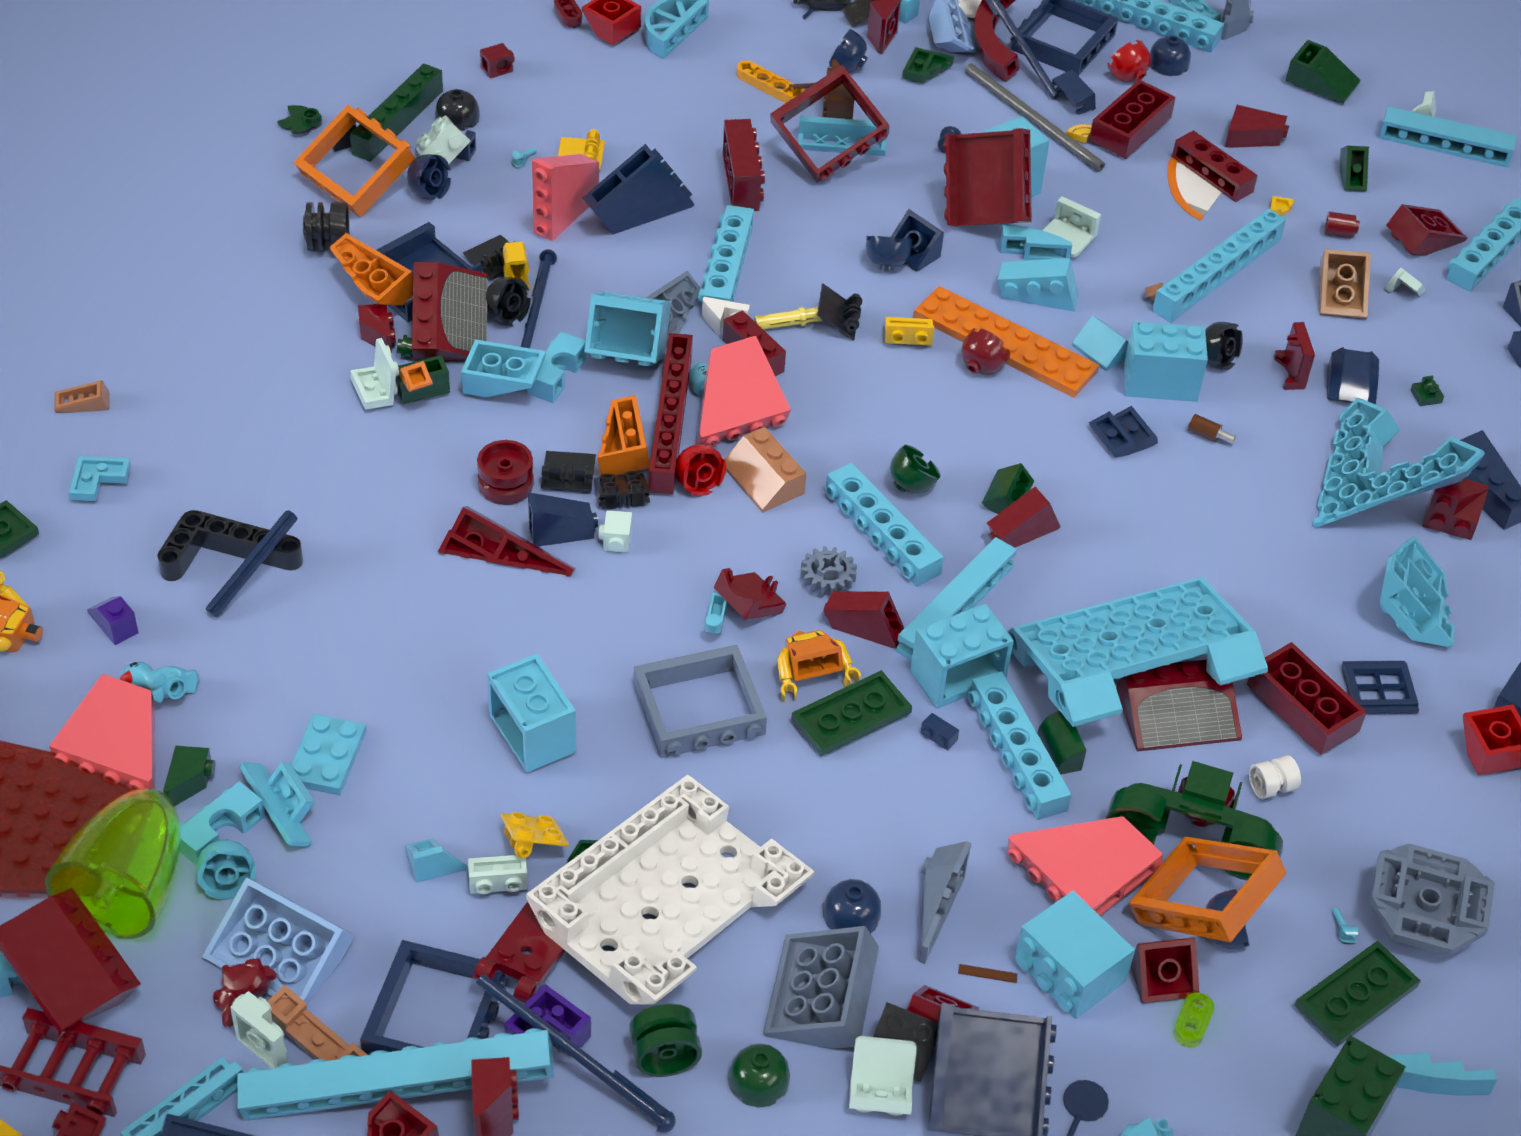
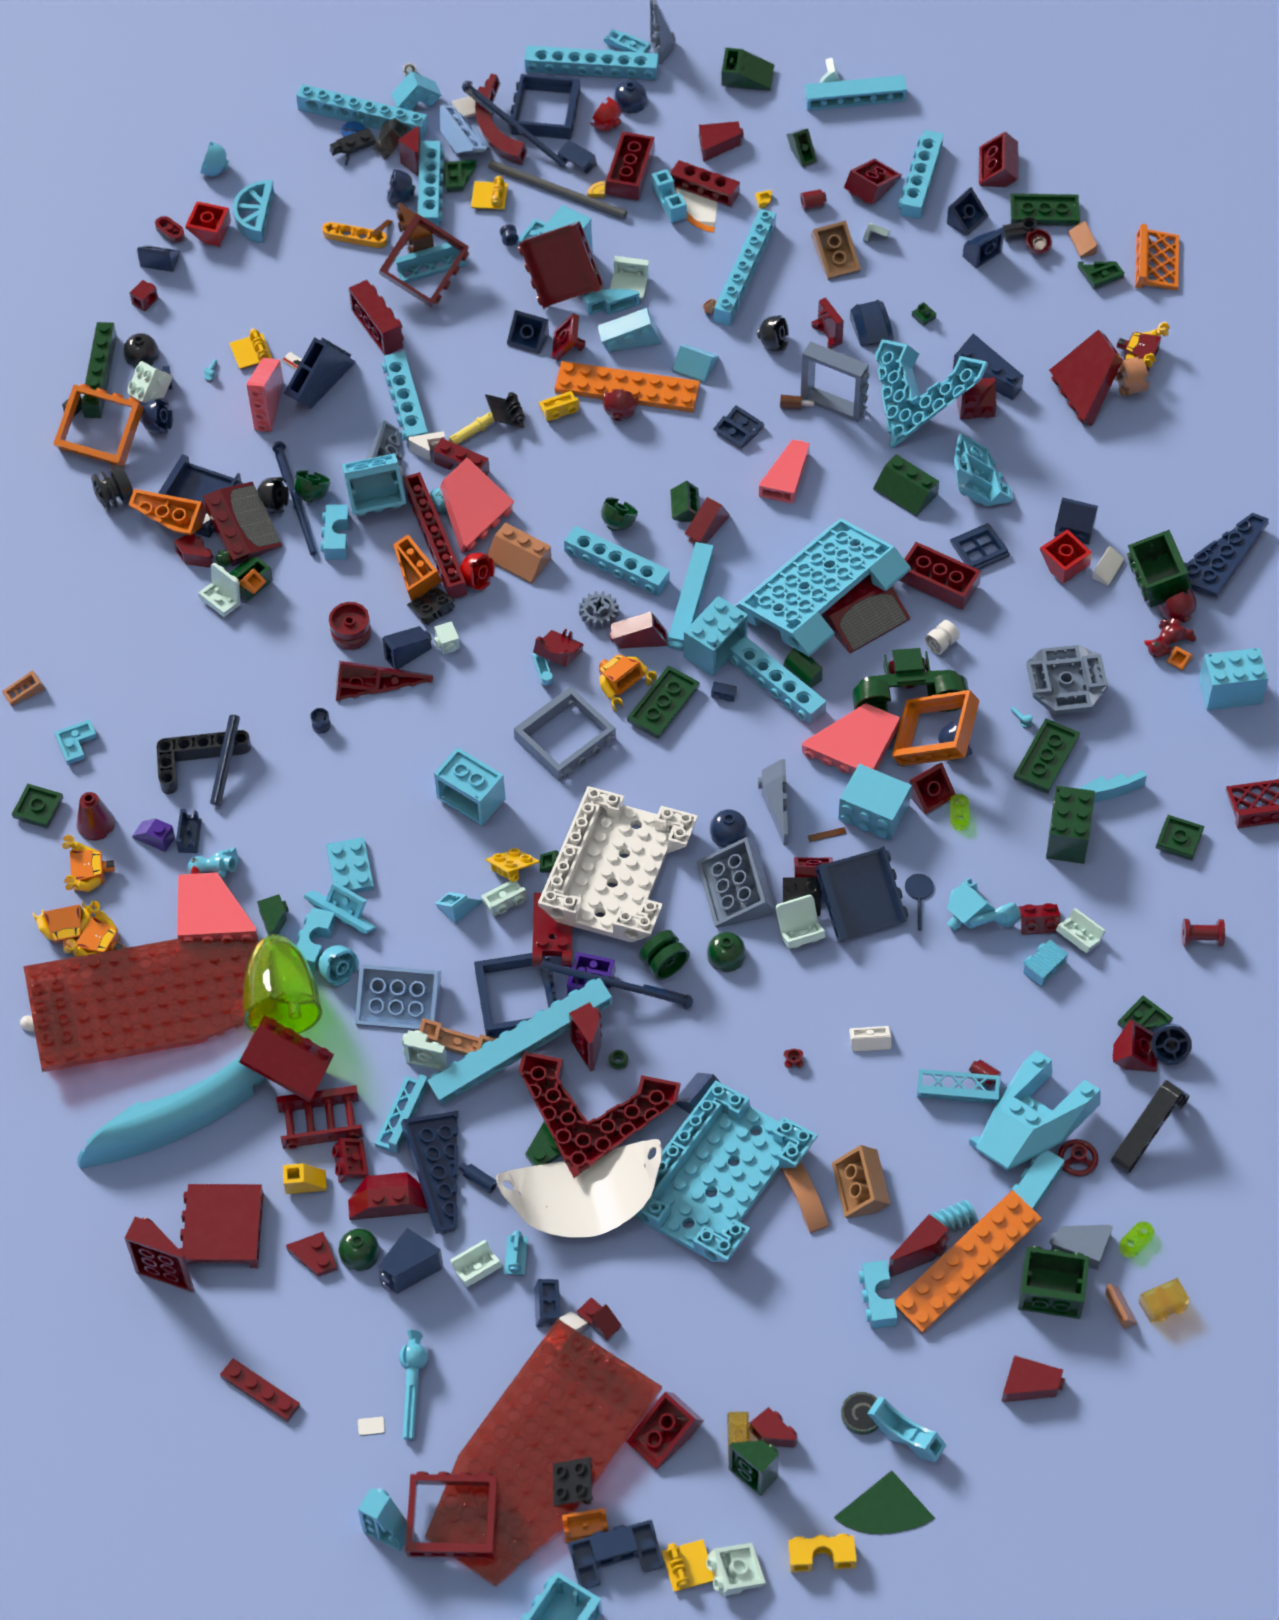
camera: 20 degrees left, 10 degrees up
(52, 566) = (94, 817): none -> dark red cone
(154, 630) = (188, 832): none -> dark blue hinge
(239, 980) = (393, 1028): dark red animal -> none
(300, 119) = (29, 403): dark green plate -> none
(401, 565) = (320, 720): none -> dark blue wheel
(489, 255) = (241, 460): black hinge -> none
(499, 368) = (303, 550): medium azure slope -> none
(516, 262) = (265, 464): yellow brick -> none
(536, 32) = (158, 257): none -> dark blue slope
(556, 307) = (311, 486): none -> dark green cylinder
(568, 471) = (388, 606): black hinge -> none
(888, 251) = (514, 347): dark blue cylinder -> none
(889, 59) = (429, 181): none -> medium azure brick
(951, 96) = (490, 194): none -> yellow hinge
(958, 262) = (566, 337): none -> dark red tile
(1158, 504) = (785, 475): none -> coral slope
(1163, 167) = (672, 203): none -> medium azure arch
(1165, 361) = (745, 363): medium azure container -> none
(1258, 369) = (819, 354): none -> sand blue window
(1313, 575) = (906, 485): none -> dark green slope

